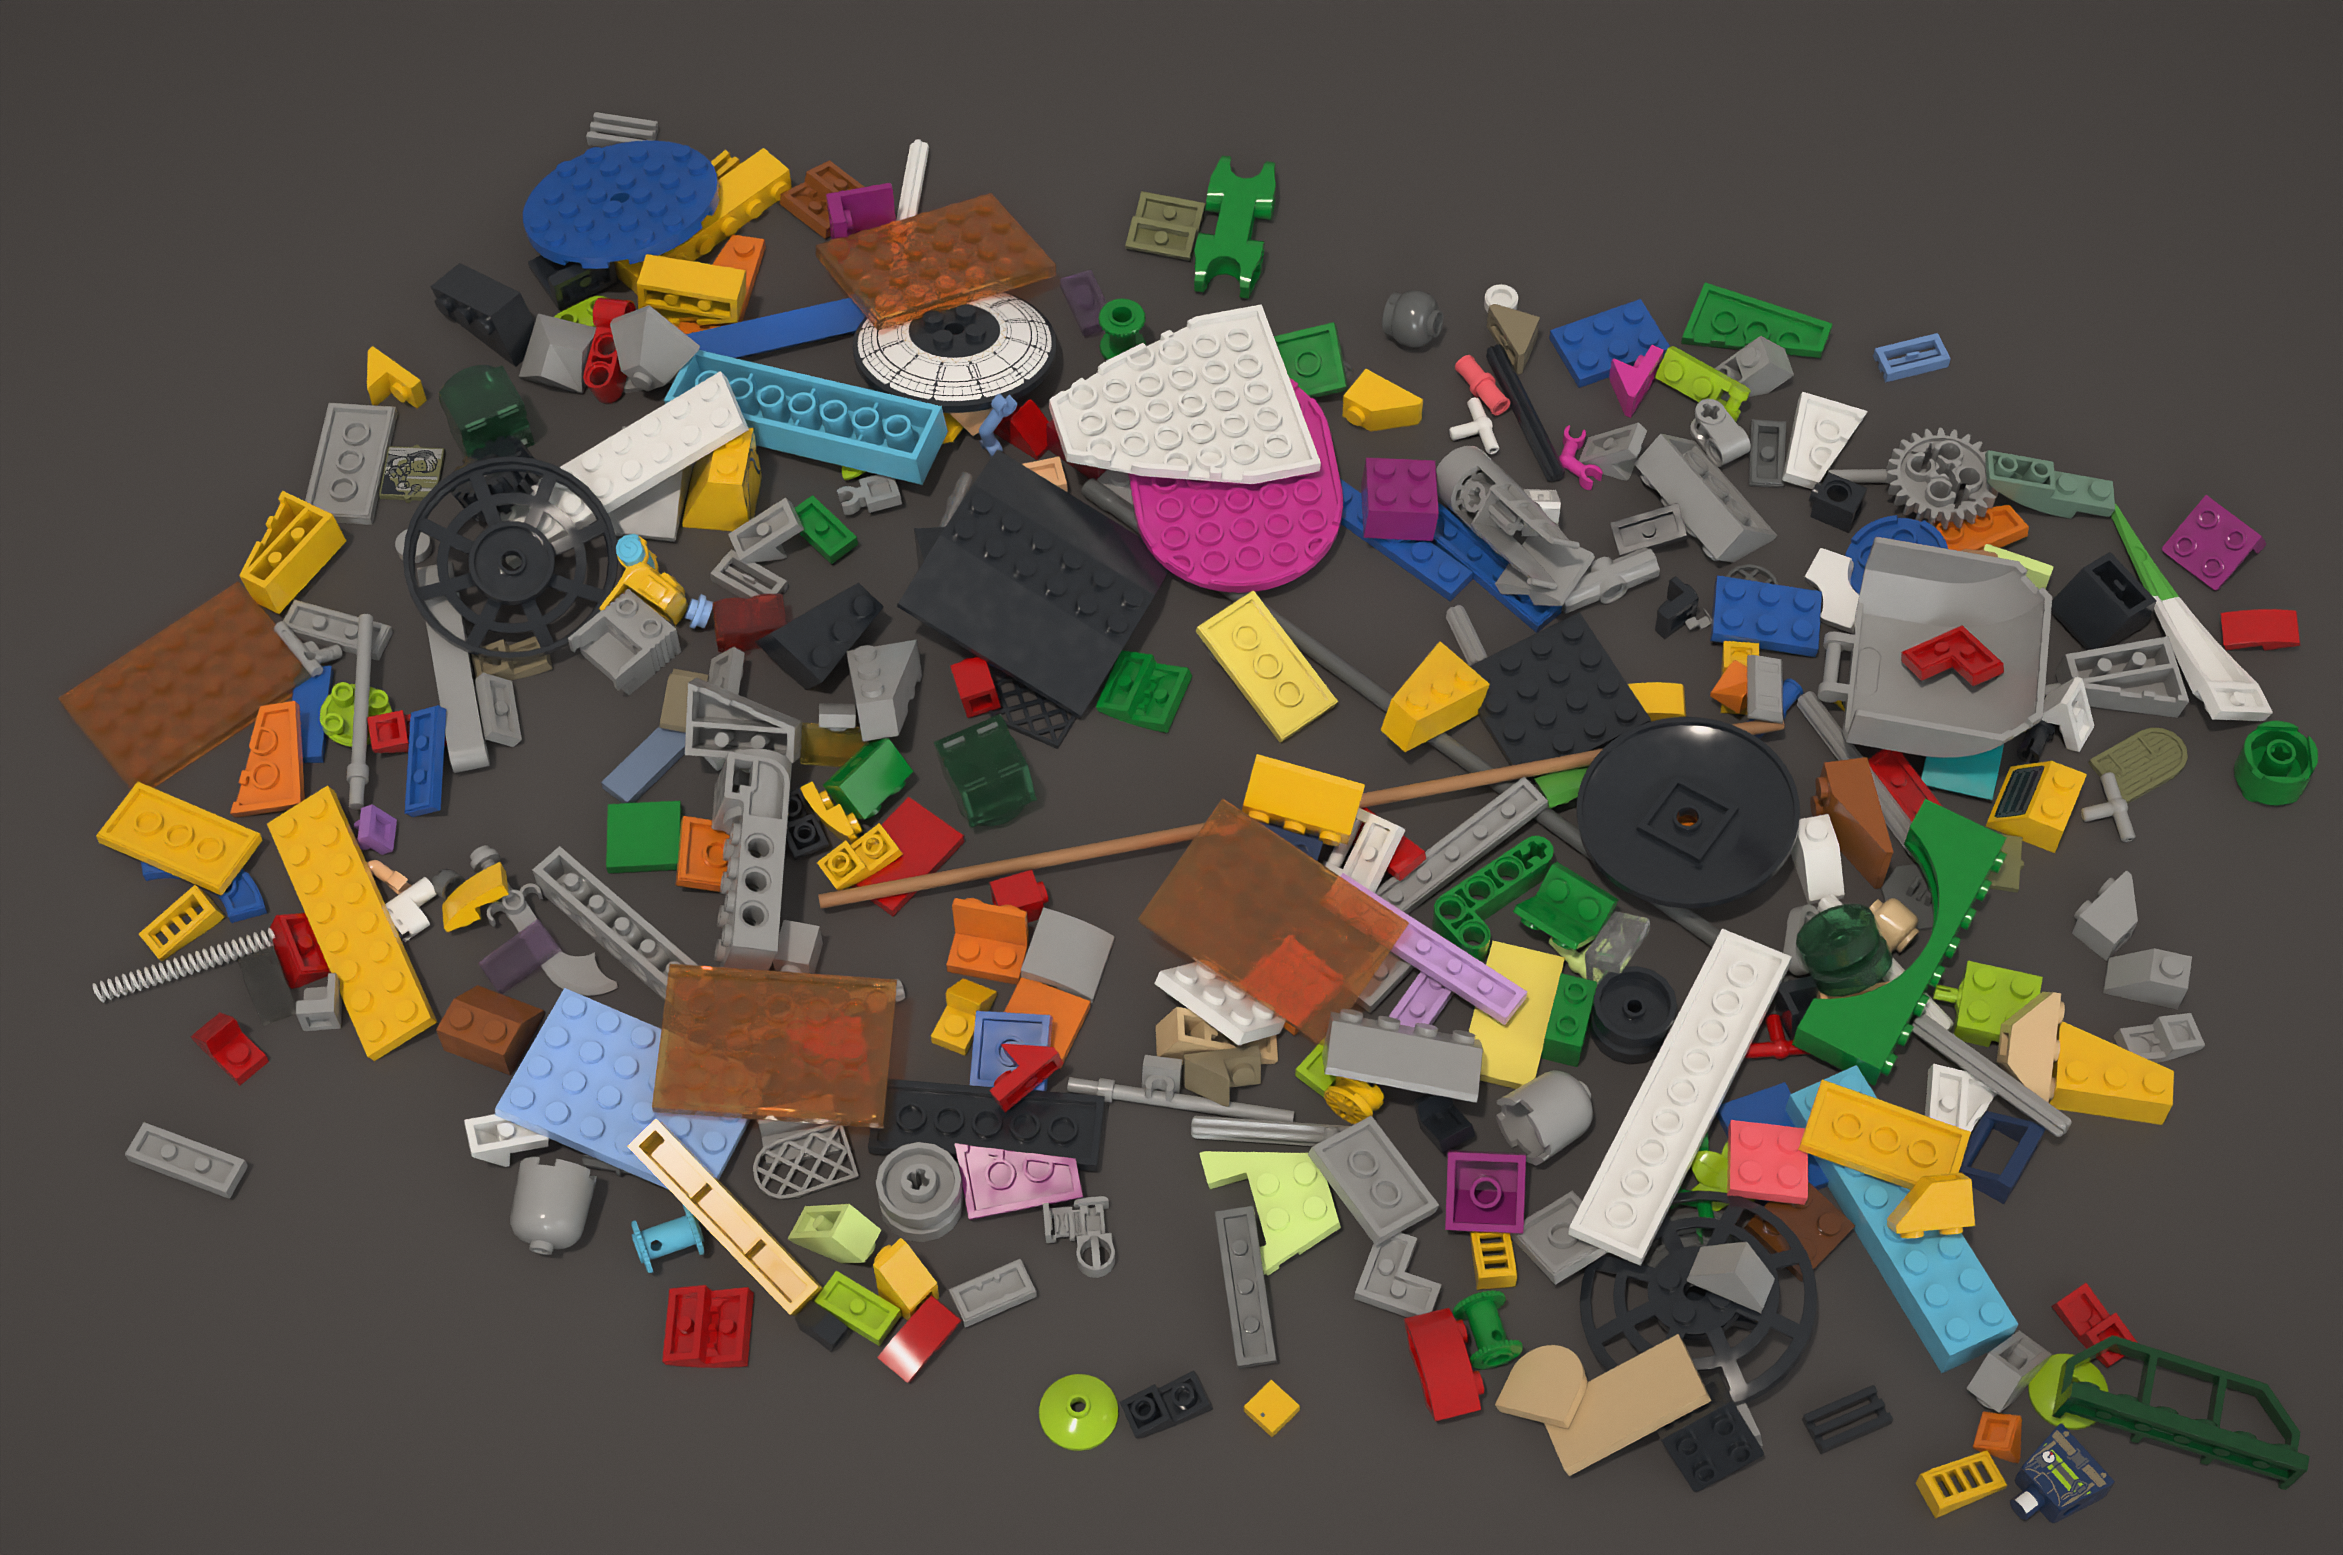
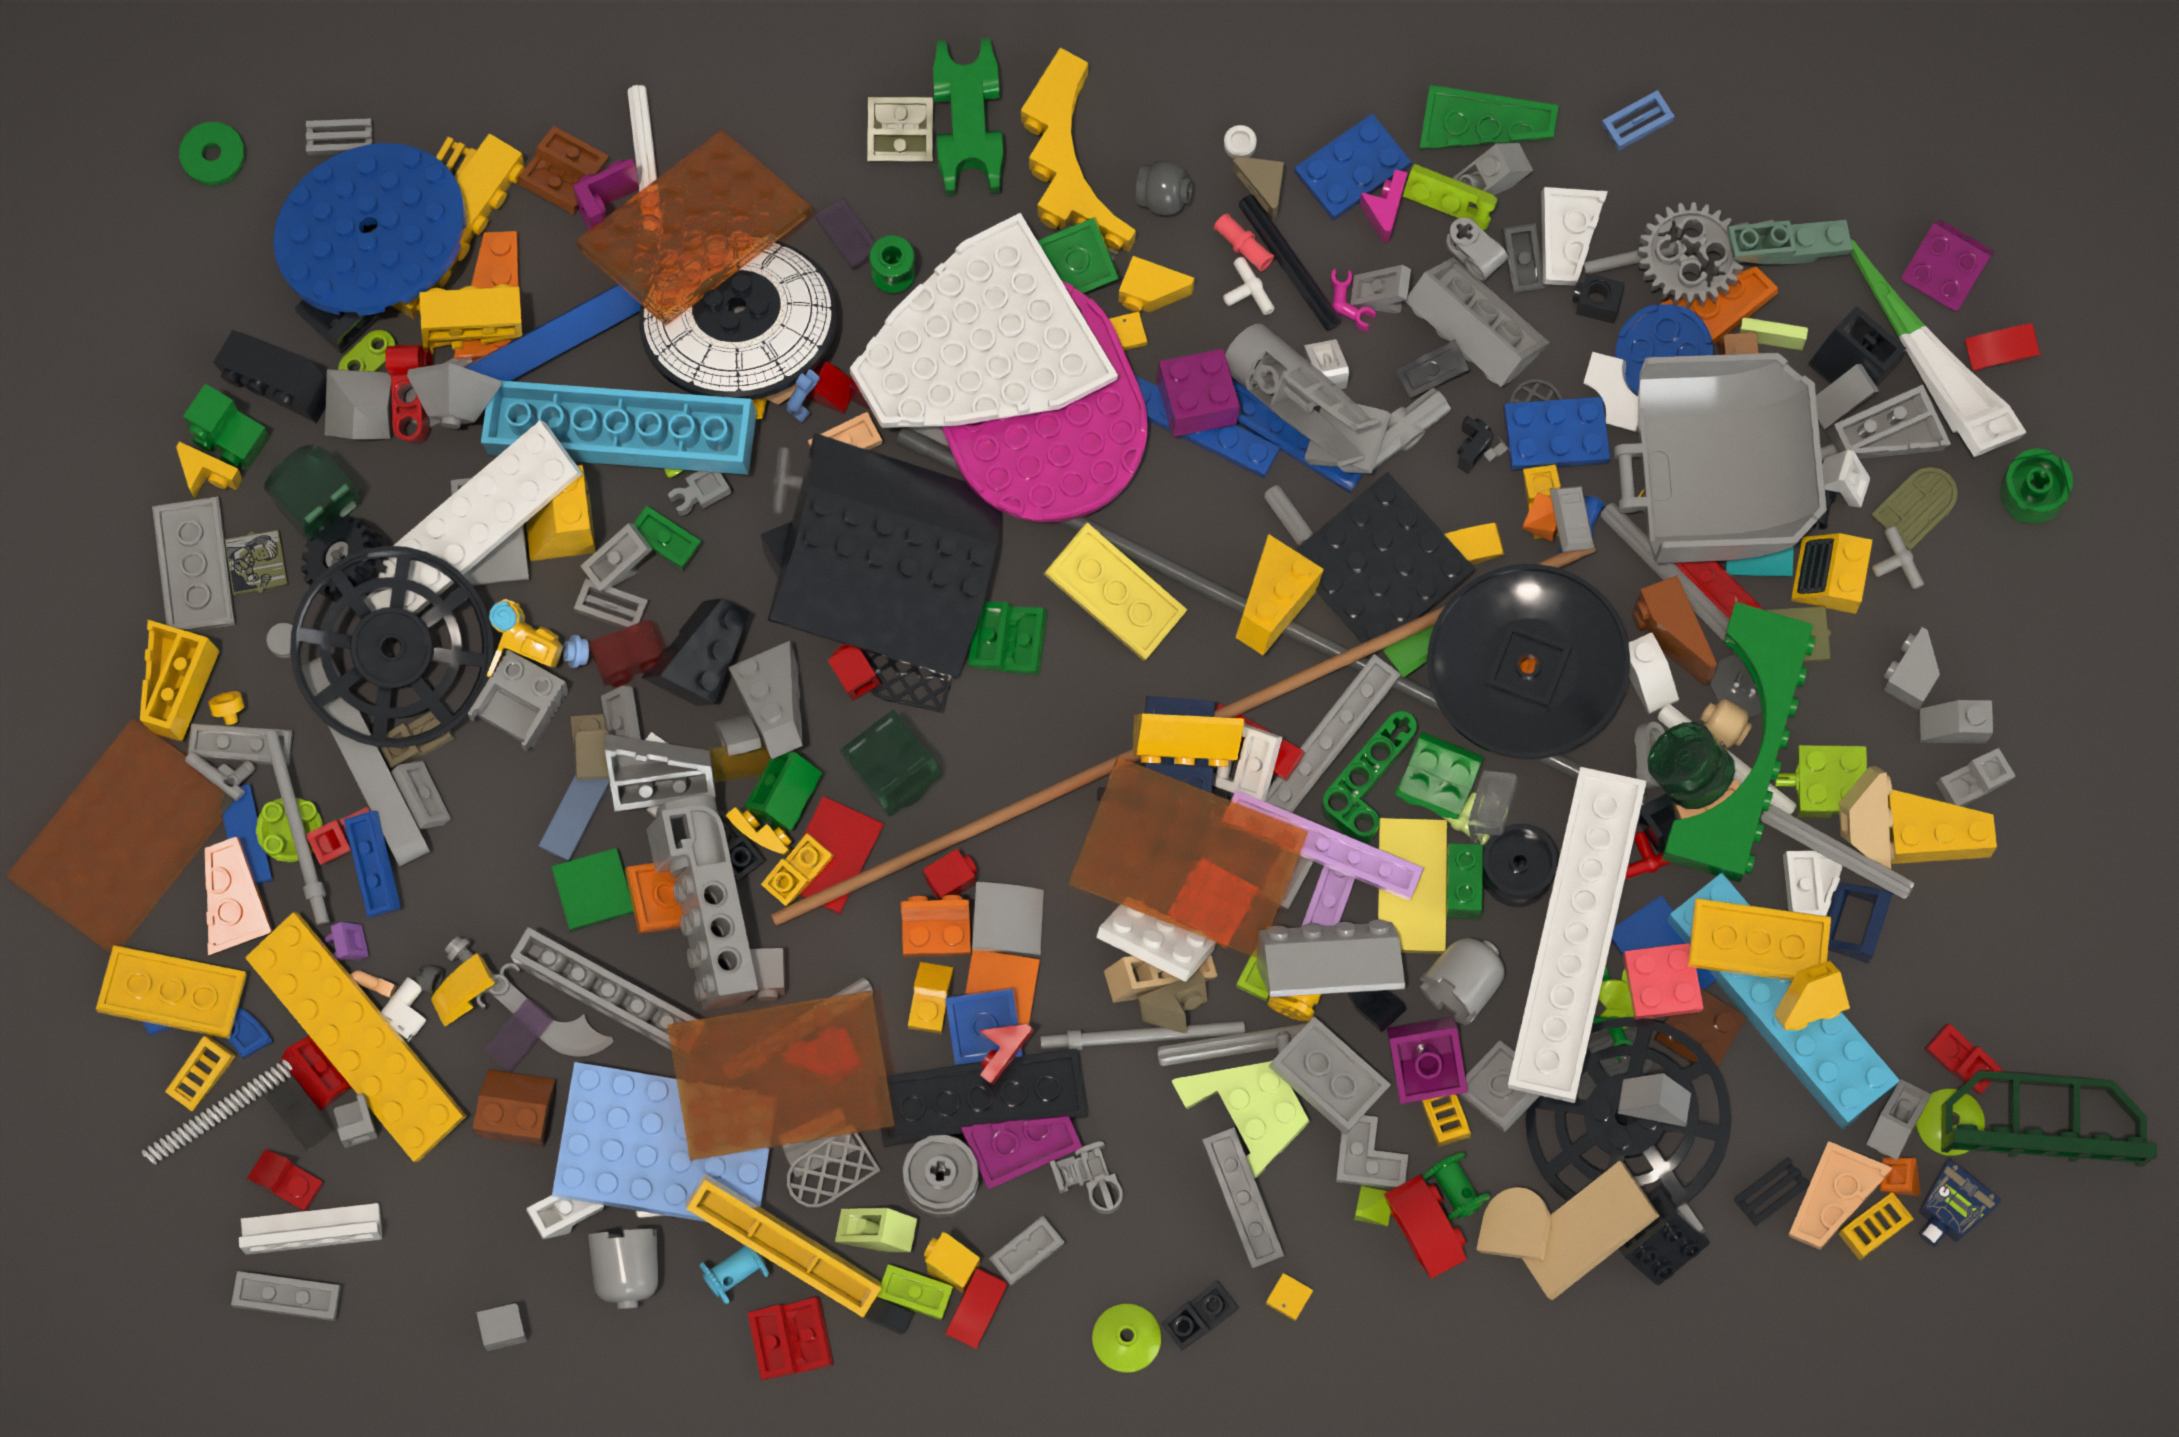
camera: 15 degrees left, 15 degrees up
(236, 1100) = (310, 1229): none -> white fence
(334, 590) = (226, 706): none -> yellow tile
(399, 1242) = (501, 1327): none -> light grey panel
(418, 344) = (220, 426): none -> green brick
(495, 109) = (212, 136): none -> green tile
(1161, 1075) = (1121, 1017): light grey tile -> none
(1316, 240) = (1053, 159): none -> yellow arch
(1346, 441) = (1129, 330): none -> yellow tile
(1388, 1334) = (1372, 1206): none -> lime slope
(1920, 1435) = (1835, 1193): none -> light nougat wing
(1956, 650) = (1735, 443): red tile -> none
(2084, 633) = (1844, 396): none -> light grey tile

